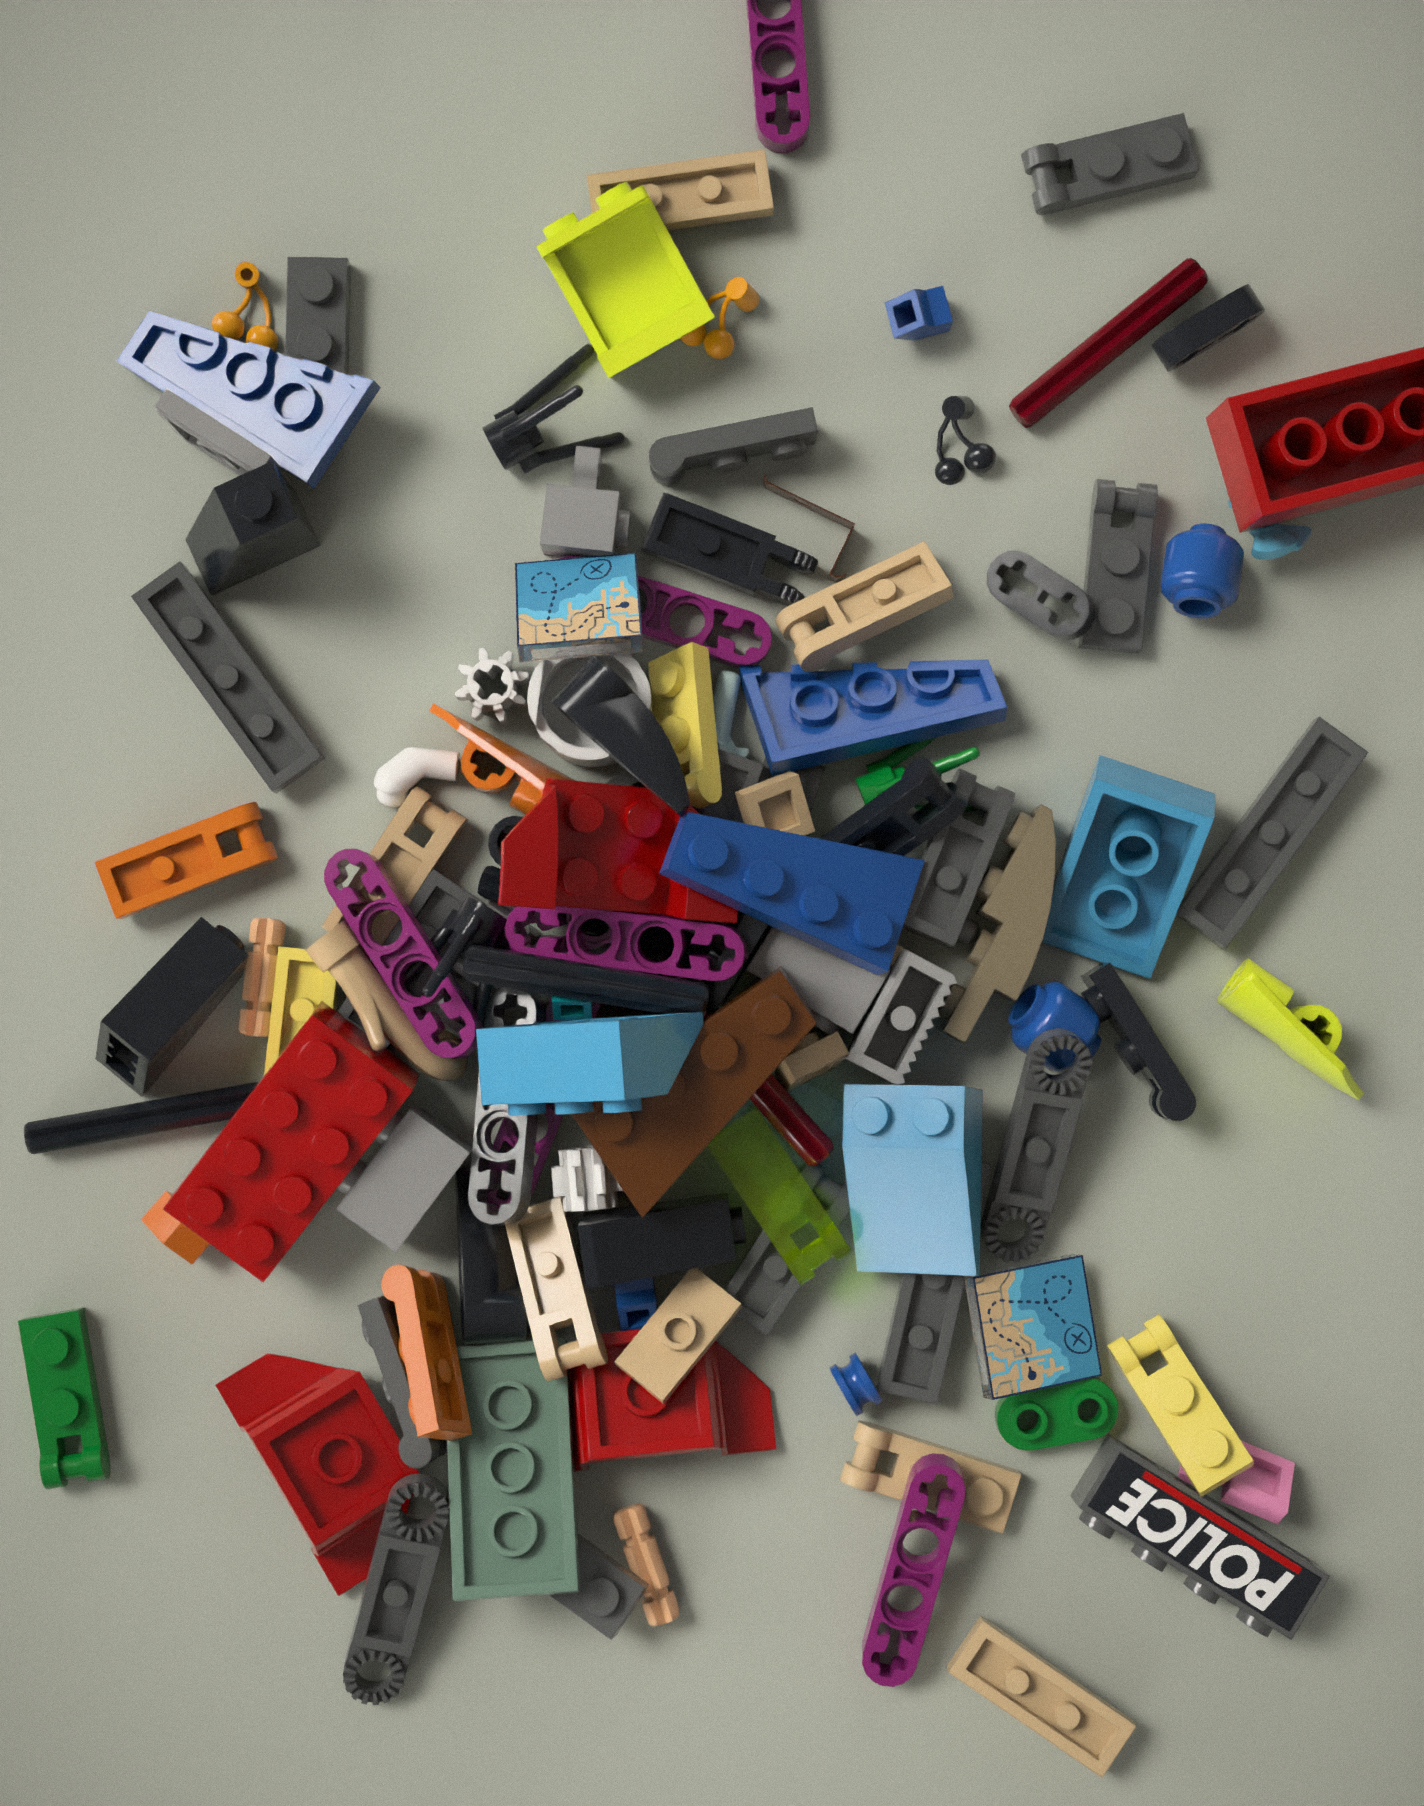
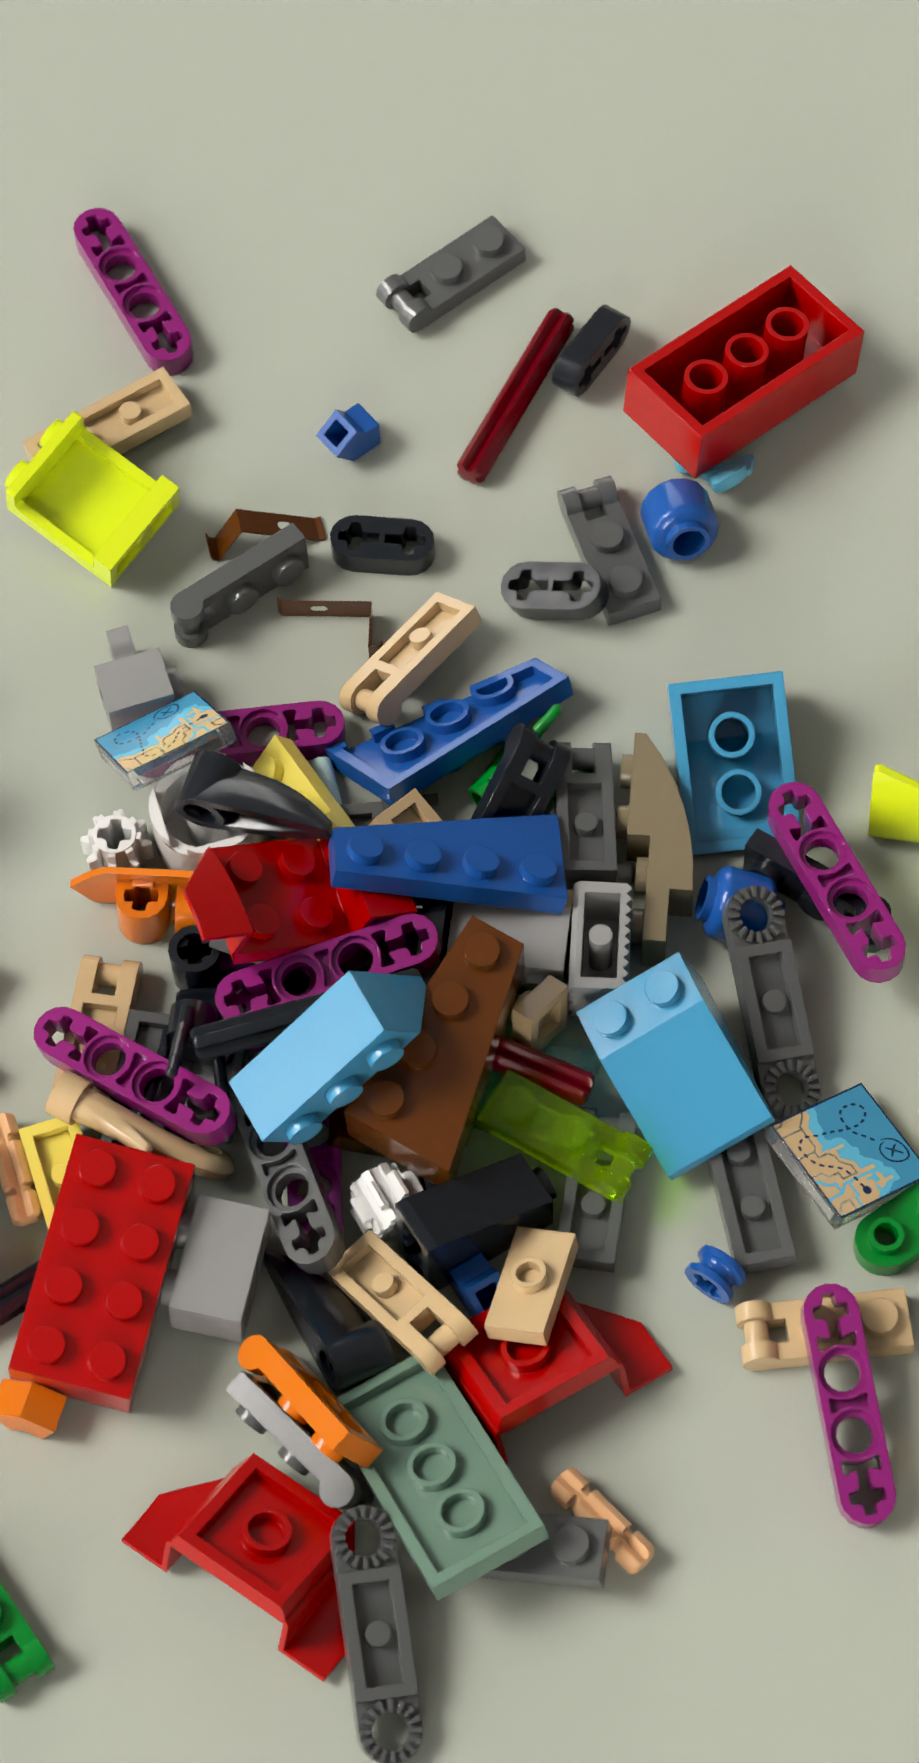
camera: 20 degrees left, 25 degrees down
(409, 767) = (73, 942): white arm -> none
(515, 429) = (51, 650): black plant -> none
(719, 342) = (191, 522): light orange piece -> none
(722, 549) = (271, 666): black hinge -> none
(786, 385) = (259, 523): none -> reddish brown piece
(903, 445) = (382, 545): none -> black beam
(977, 458) = (451, 518): black piece -> none
(1164, 1061) = (841, 879): none -> magenta beam
(1270, 832) = (842, 689): dark grey plate -> none

